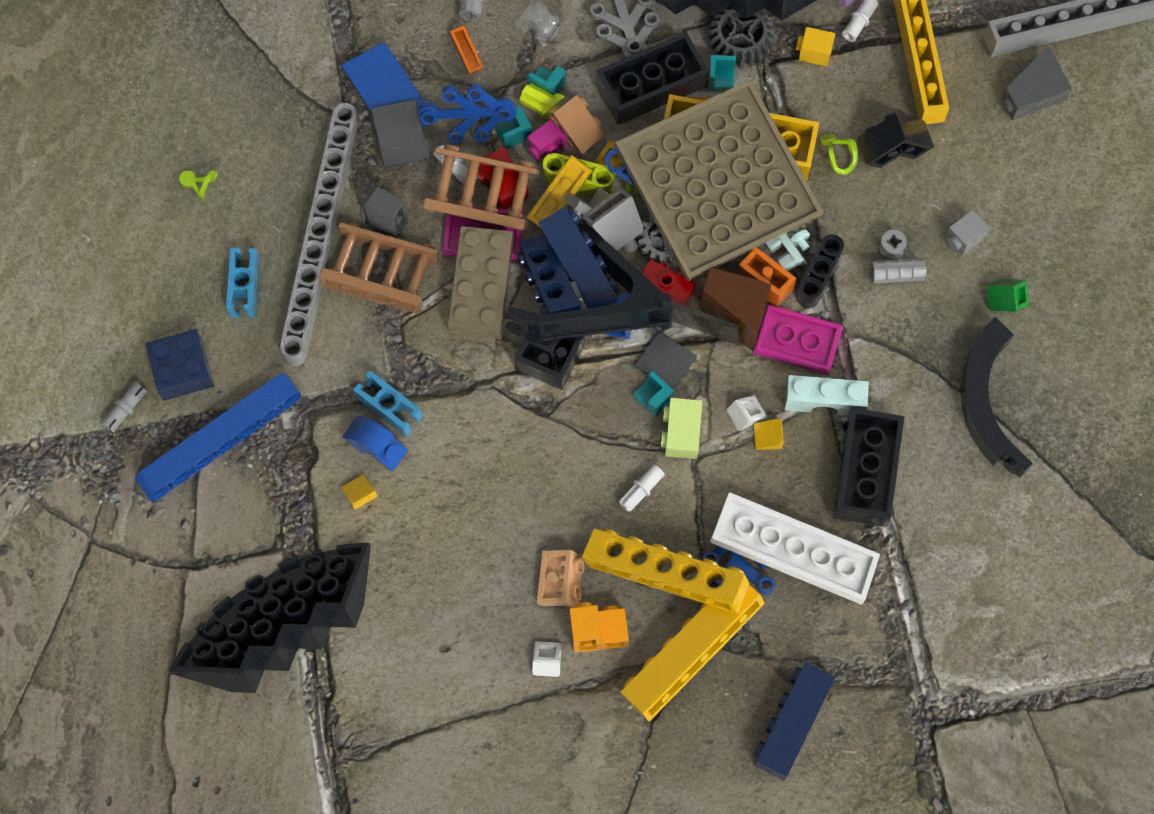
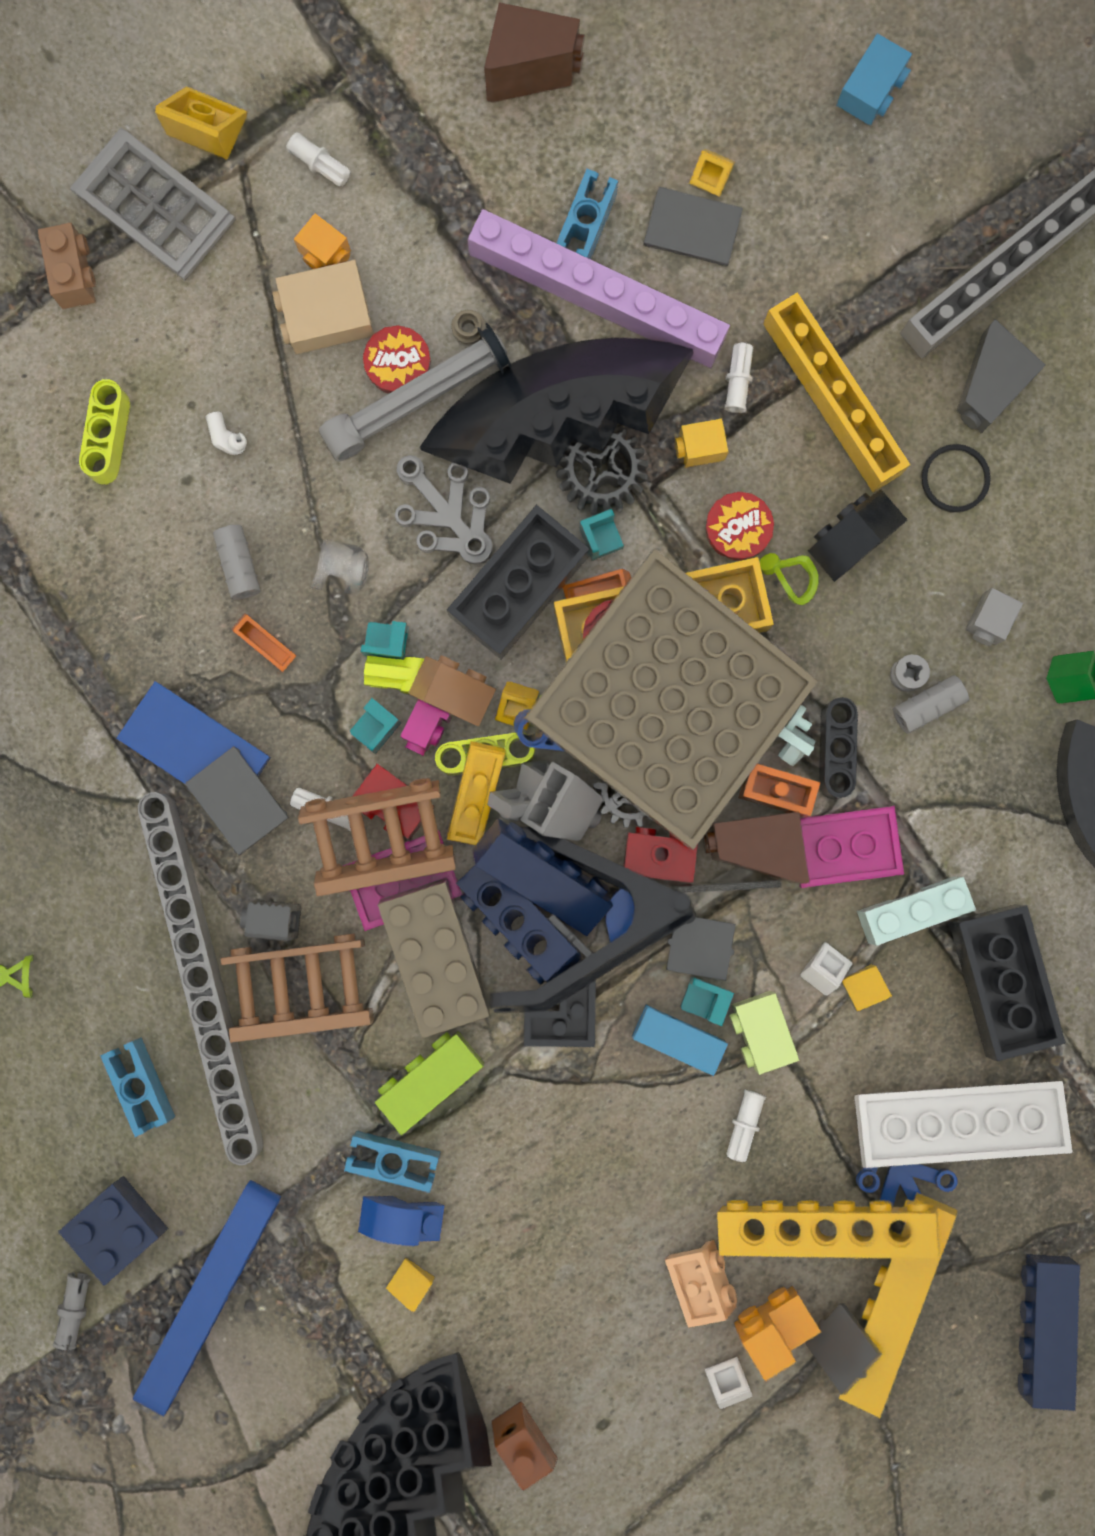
camera: 25 degrees left, 15 degrees up
(383, 630) = (525, 1449): none -> dark orange torso
(438, 363) = (428, 1081): none -> lime brick
(470, 112) = (311, 736): blue plant -> none
(622, 410) = (679, 1040): none -> dark azure piece
(639, 660) = (843, 1349): none -> dark grey piece
(820, 105) = (739, 526): none -> tile
(987, 120) = (987, 478): none -> black piece

